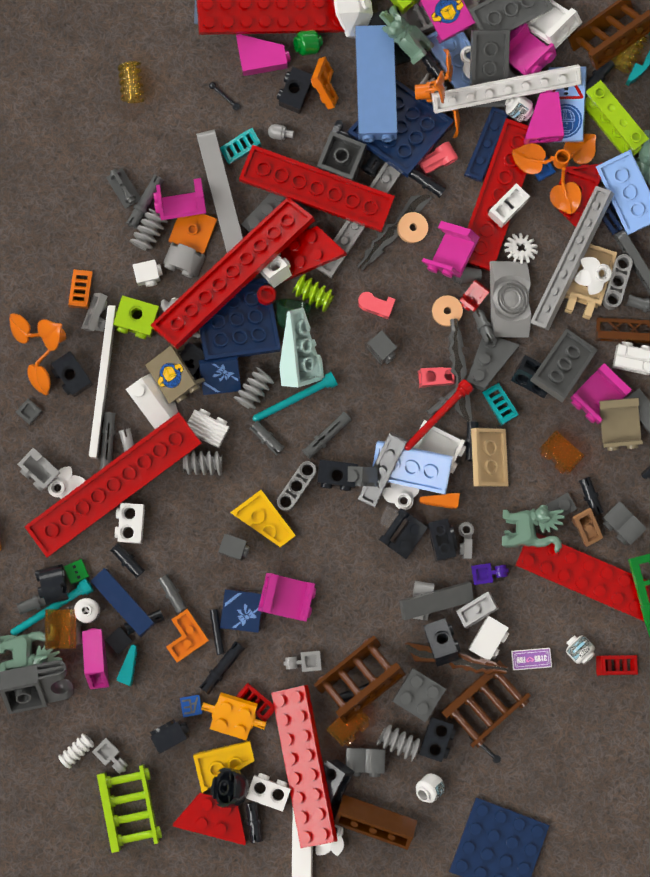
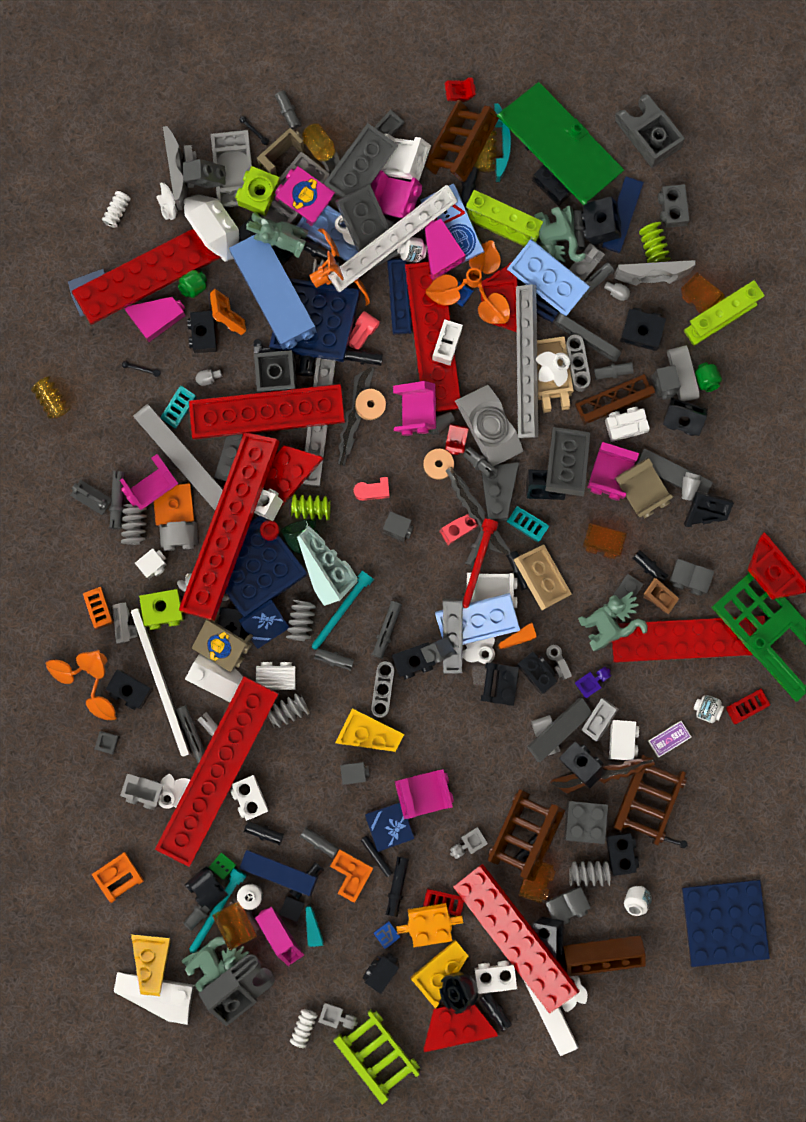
camera: 25 degrees left, 0 degrees up
(520, 255) = (469, 378): white gear -> none

